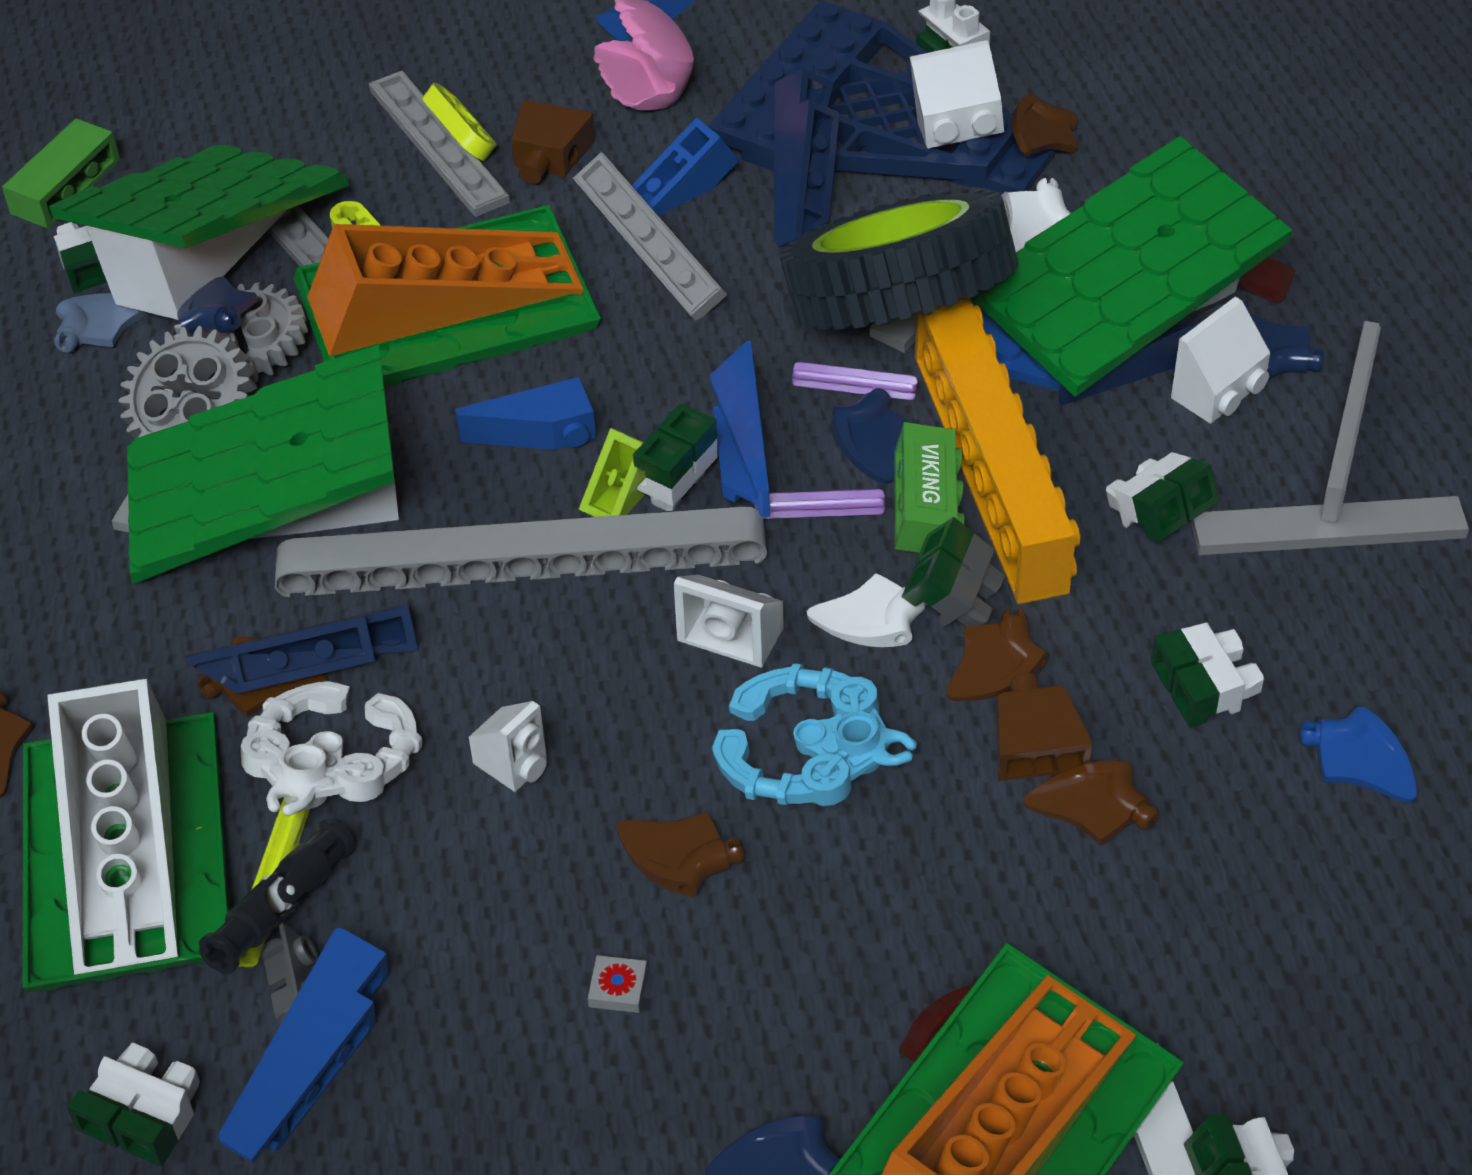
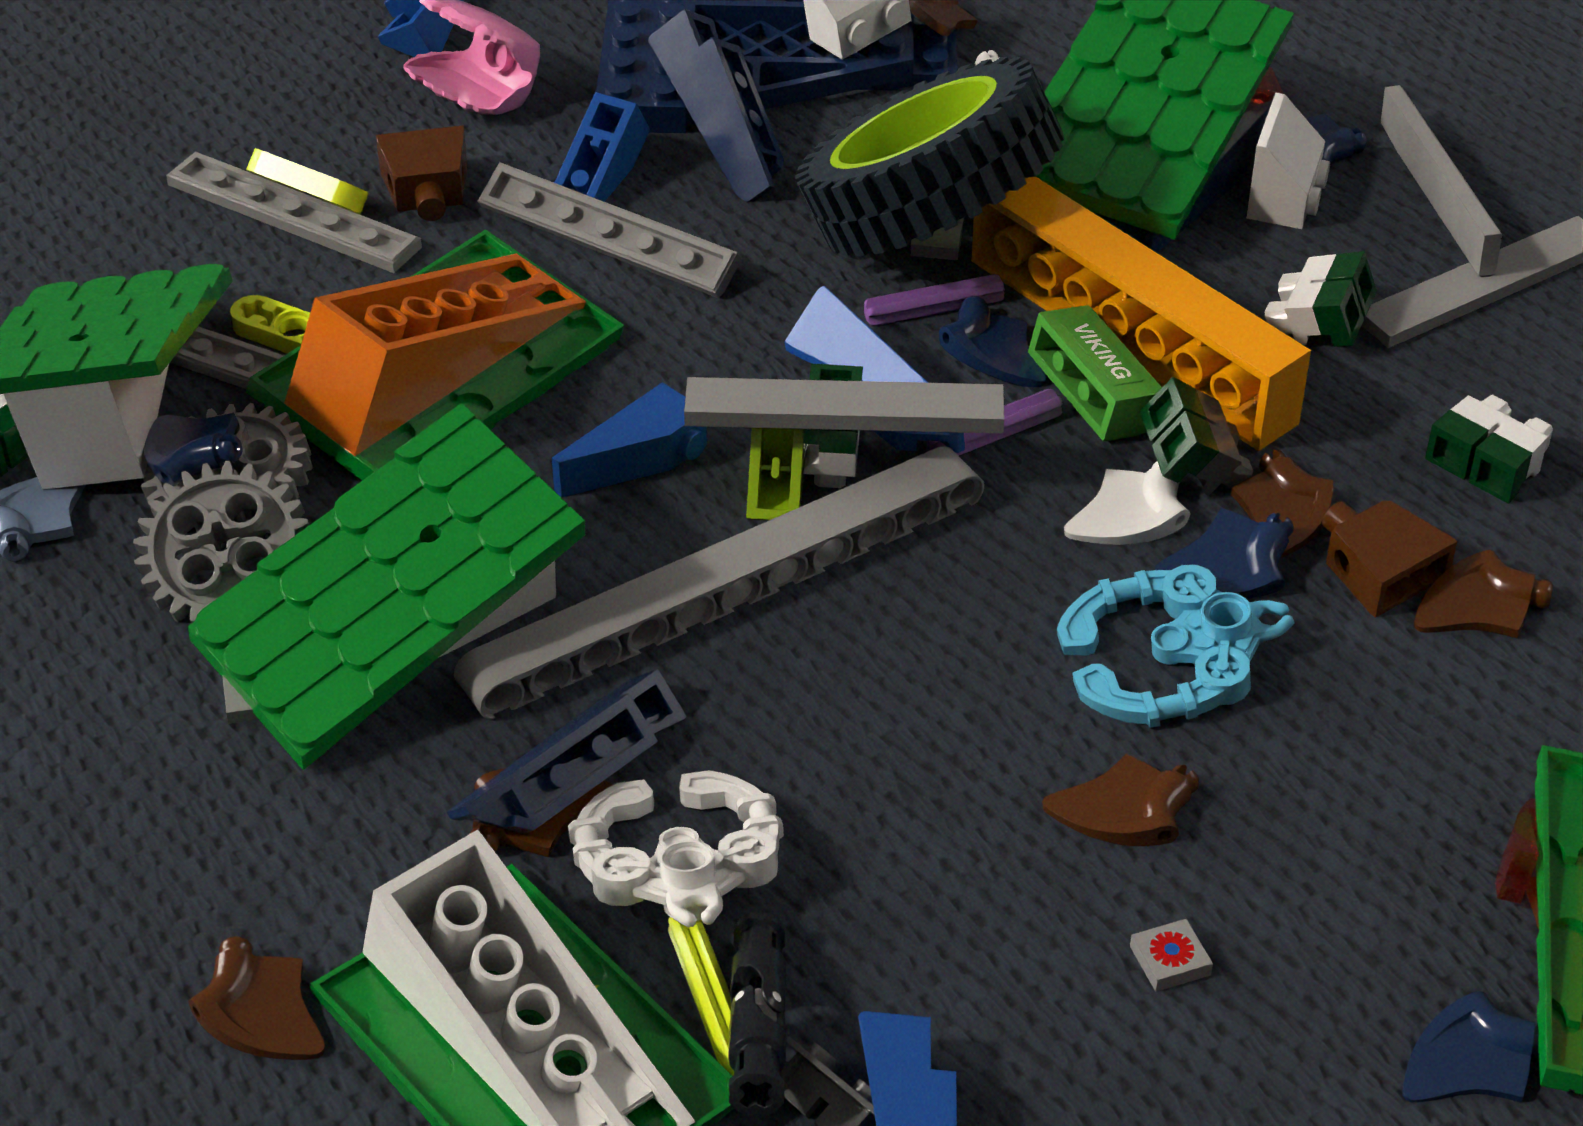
camera: 30 degrees left, 5 degrees down
(511, 745) = (880, 760): white slope -> none
(674, 447) = (844, 405): none -> light grey tile
(726, 618) = (1005, 561): white slope -> none
(918, 685) = (1239, 553): none -> dark blue arm

